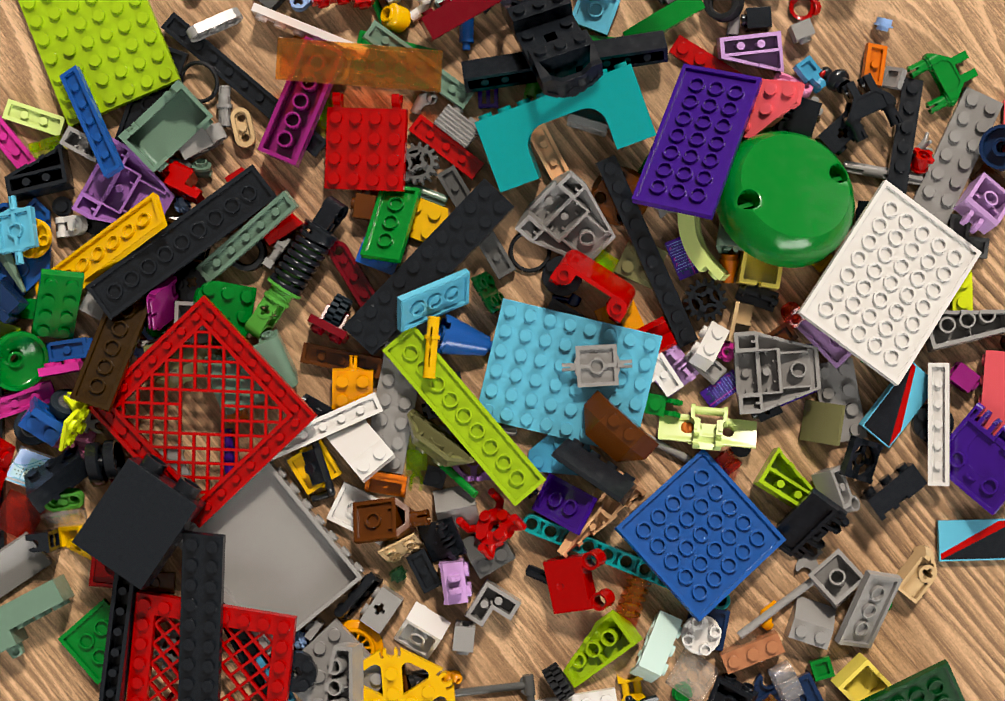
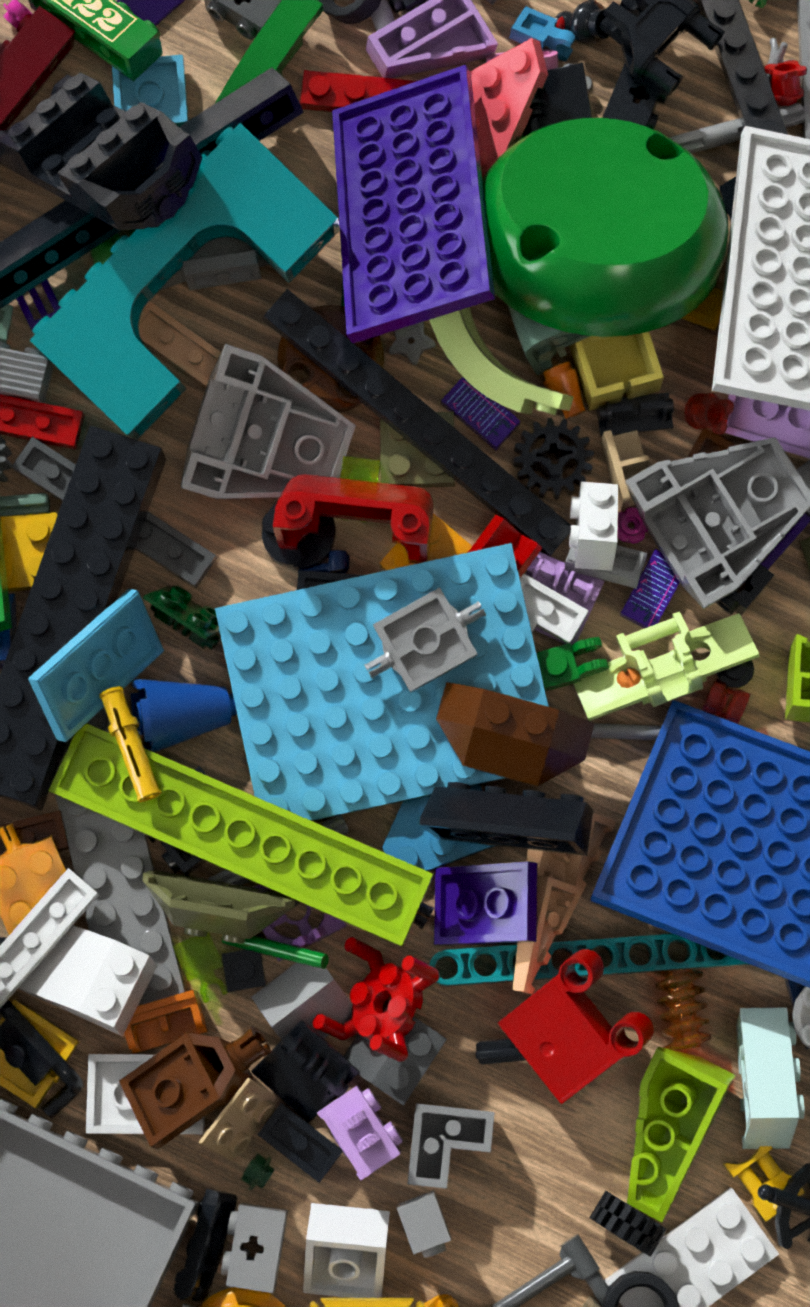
camera: 20 degrees left, 10 degrees down
(520, 267) = (219, 552): black tyre -> none

